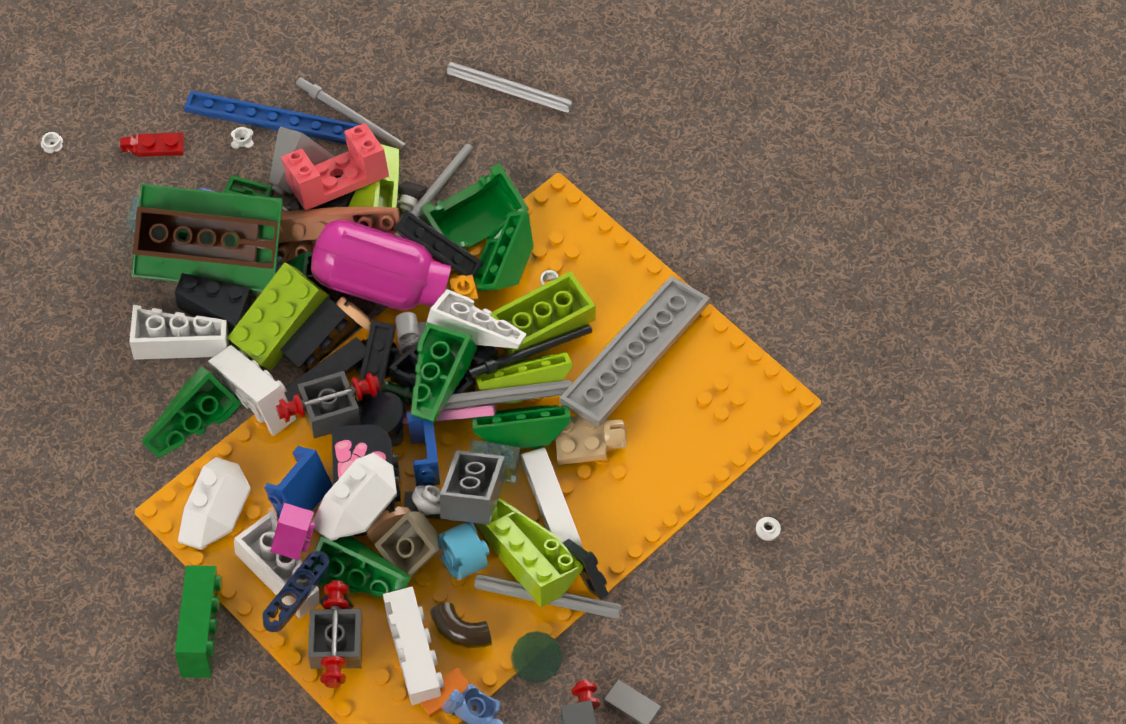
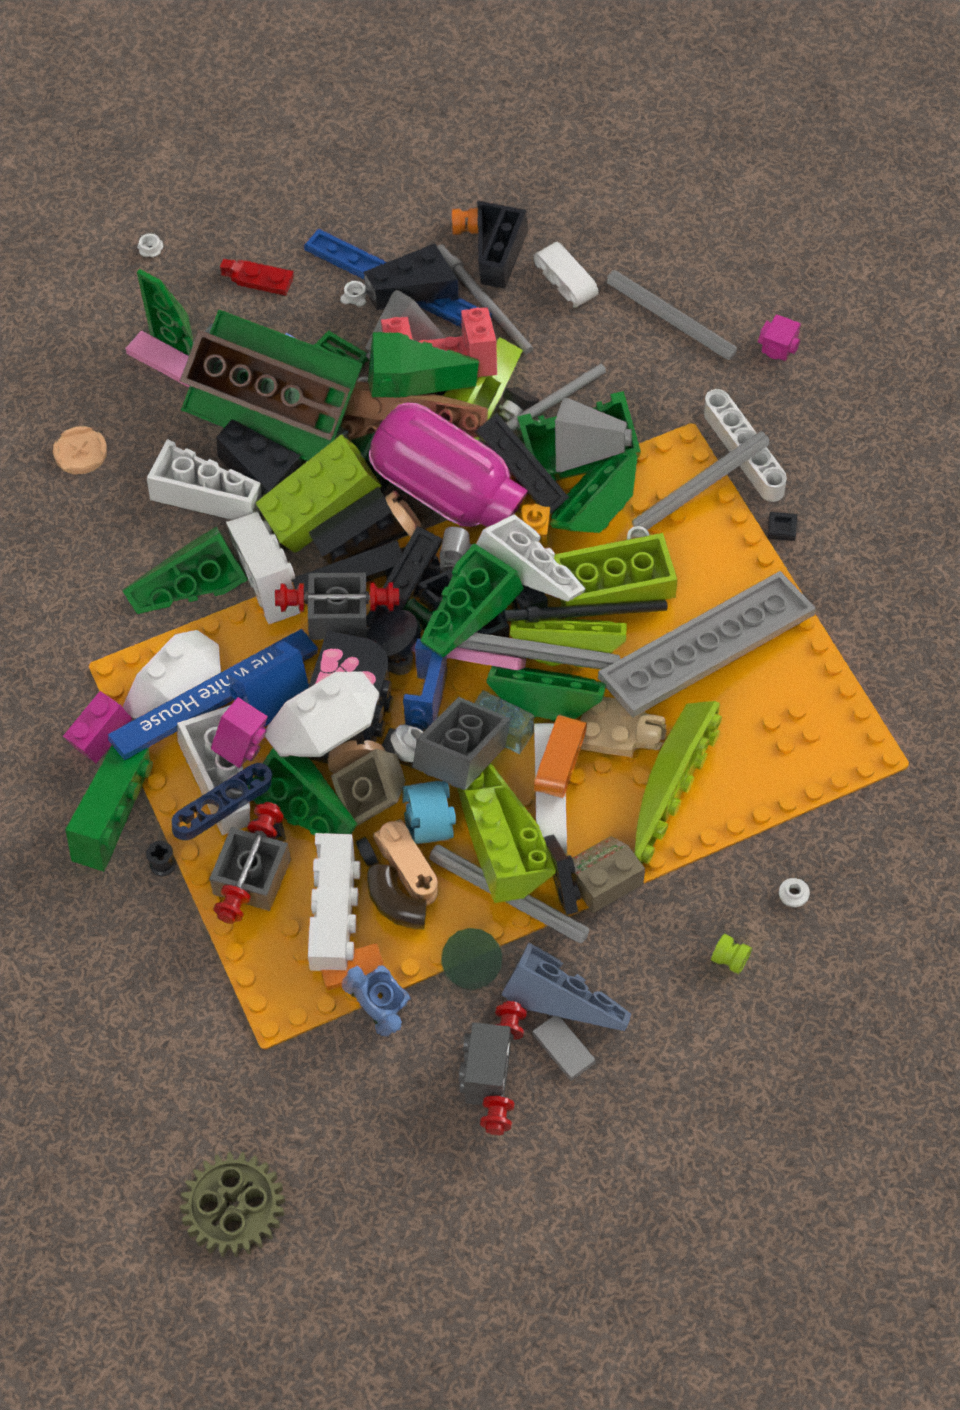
camera: 20 degrees right, 0 degrees up
(57, 334) = (80, 450): none -> light nougat tile
(94, 202) = (164, 314): none -> green wedge
(100, 236) = (158, 355): none -> bright pink tile
(164, 561) = (94, 724): none -> dark pink brick
(243, 514) = (197, 701): none -> blue tile
(252, 658) = (161, 867): none -> black bush
(293, 109) = (419, 275): none -> black wedge
(307, 52) = (459, 224): none -> orange wheel
(319, 191) = (412, 368): none -> green wedge
(348, 62) = (499, 241): none -> black wedge
(412, 74) = (566, 273): none -> white beam
(423, 597) = (366, 852): none -> black tile
(453, 589) = (404, 855): none -> light nougat piece
(483, 207) = (587, 435): none -> light grey slope
(553, 474) = (560, 756): none -> orange beam
(584, 219) = (702, 481): none -> light grey axle
(602, 663) = (546, 989): none -> sand blue wedge
(603, 171) = (733, 431): none -> white beam
(604, 83) = (780, 337): none -> dark pink brick
(620, 555) = (607, 873): none -> dark tan slope
(645, 444) = (673, 772): none -> lime wedge
(658, 238) = (782, 526): none -> black tile
(737, 591) = (731, 954): none -> lime wheel

